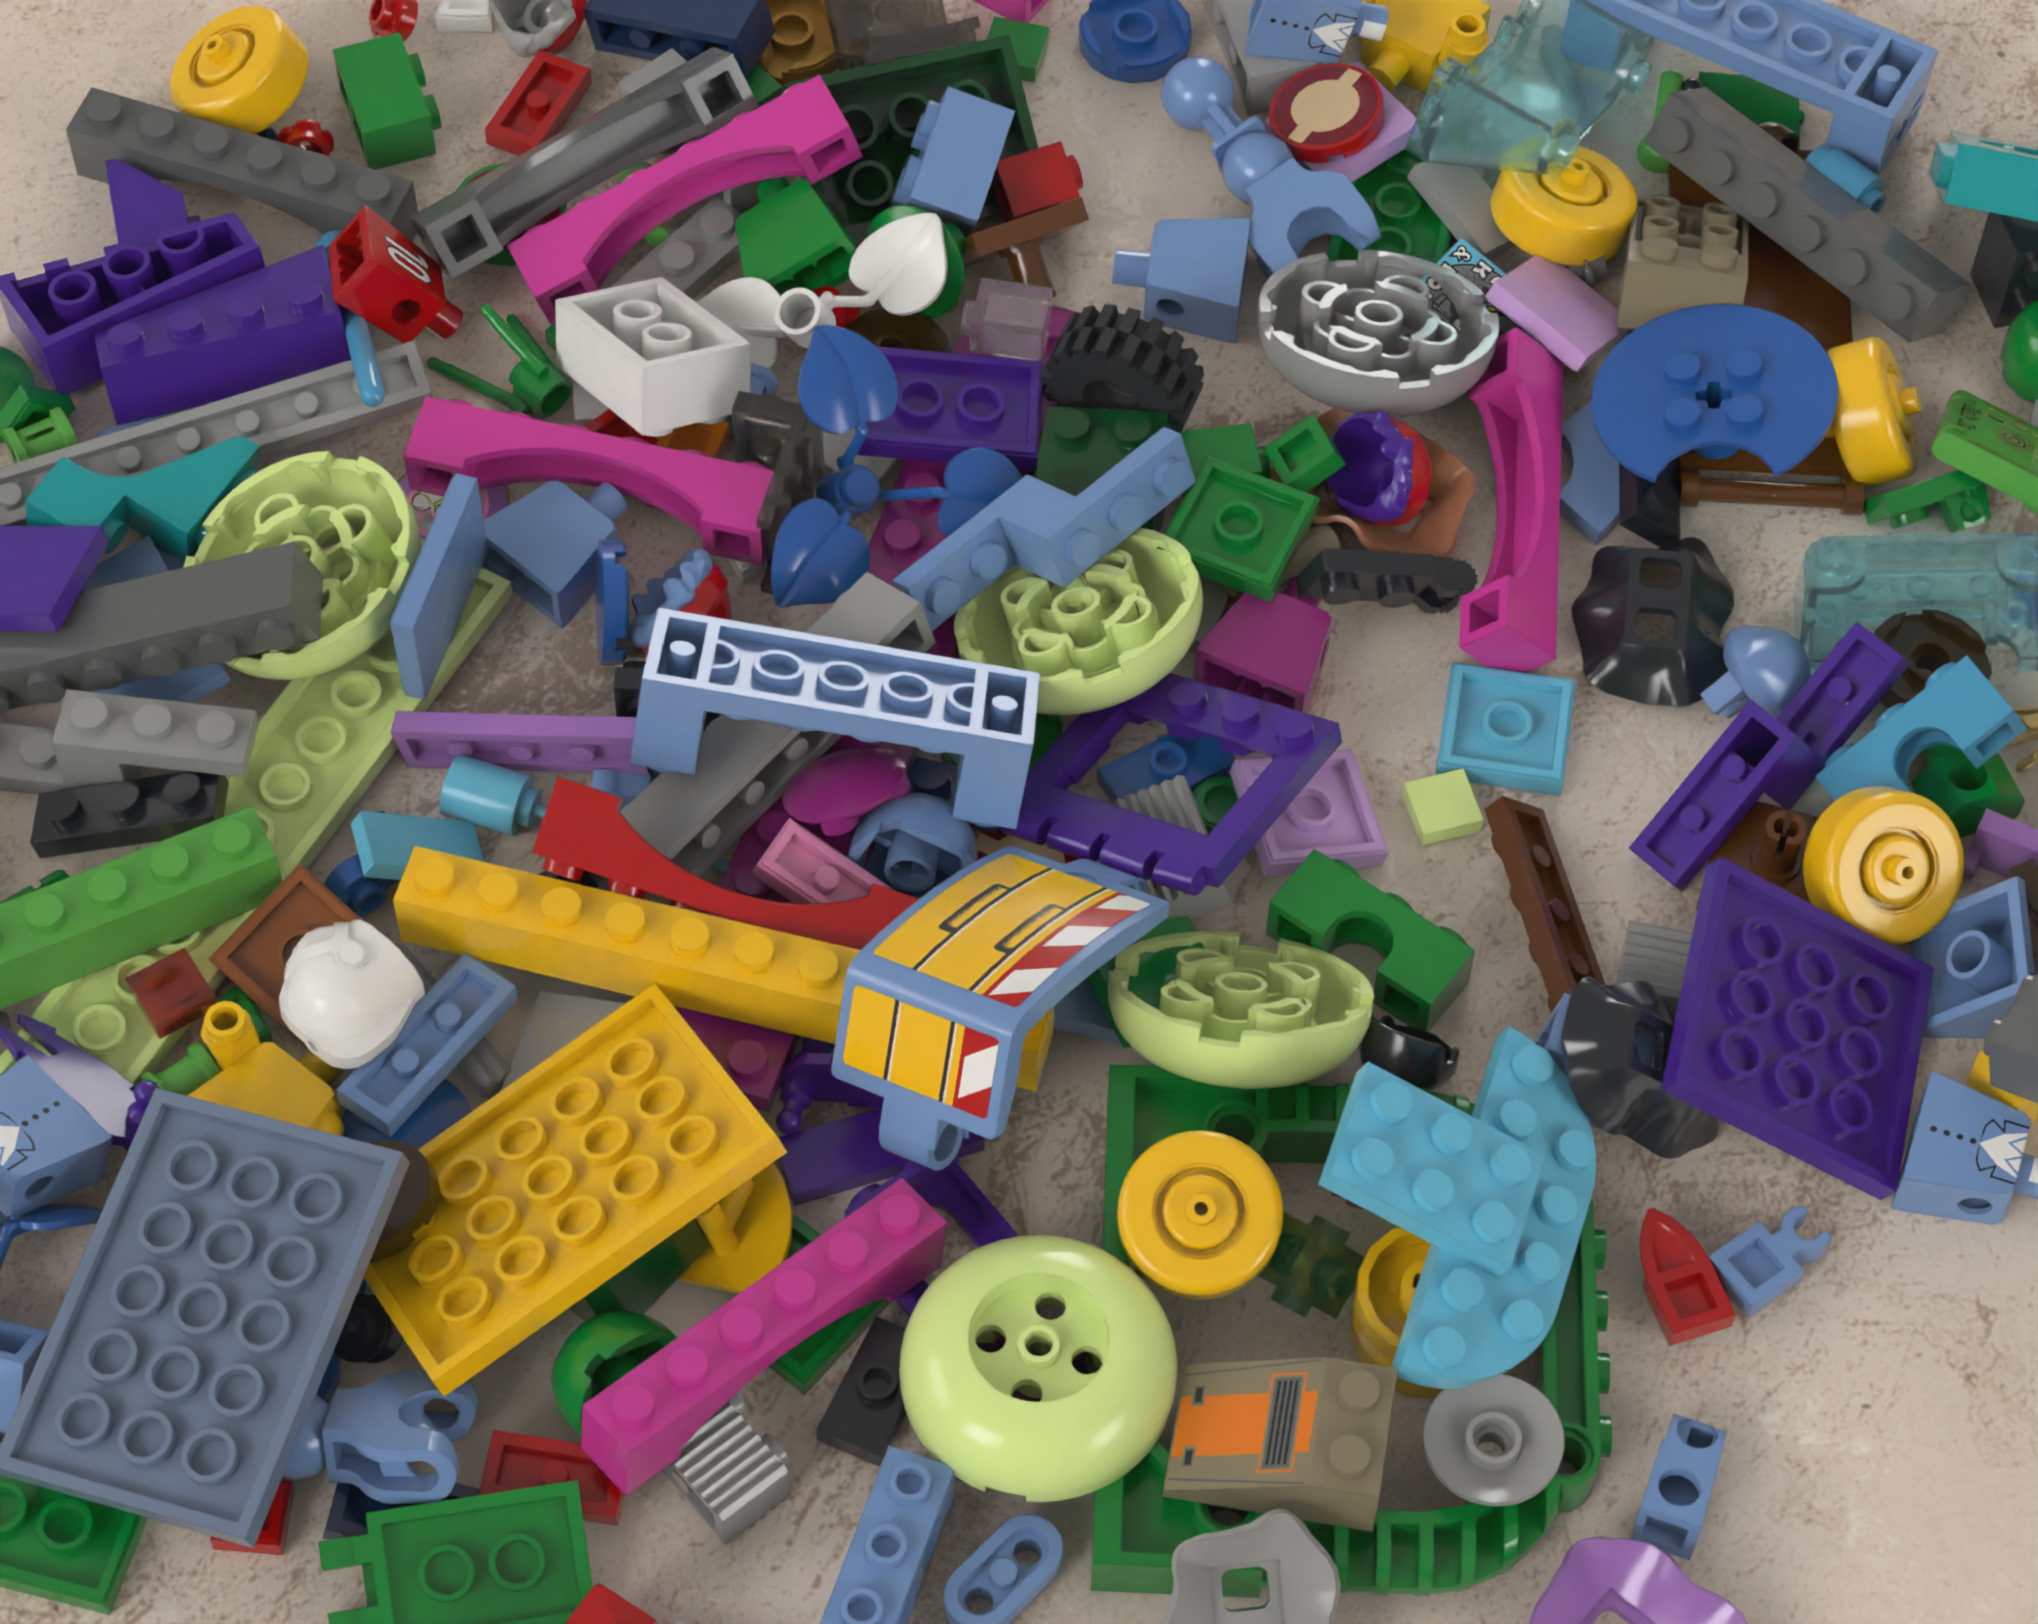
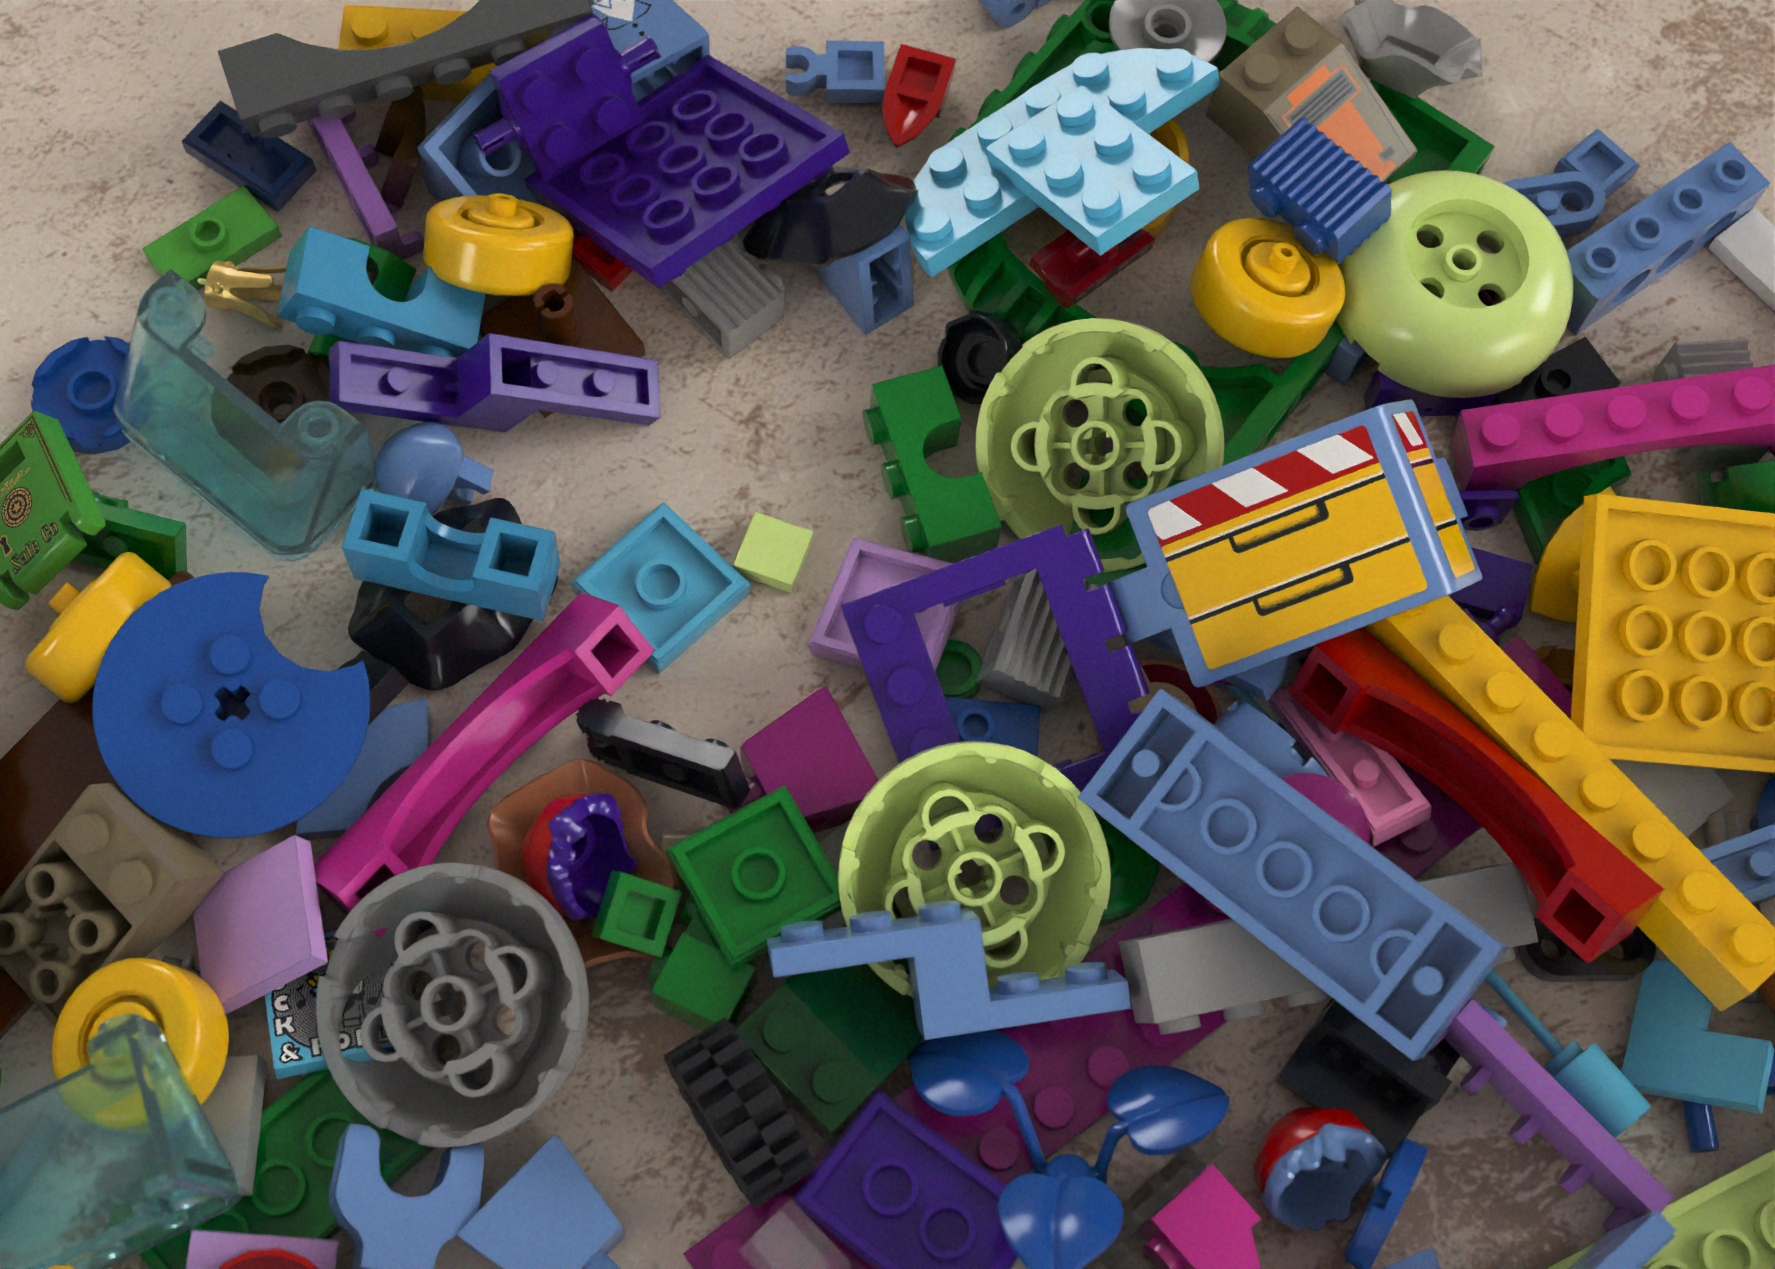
camera: 150 degrees left, 10 degrees up
(1217, 1296) = (1319, 191): none -> blue brick
(1312, 1267) = (1179, 244): clear green brick -> none
(1542, 896) = (773, 399): reddish brown plate -> none
(1704, 565) = (405, 548): none -> dark azure arch
(1949, 1007) = (567, 95): none -> dark purple plate

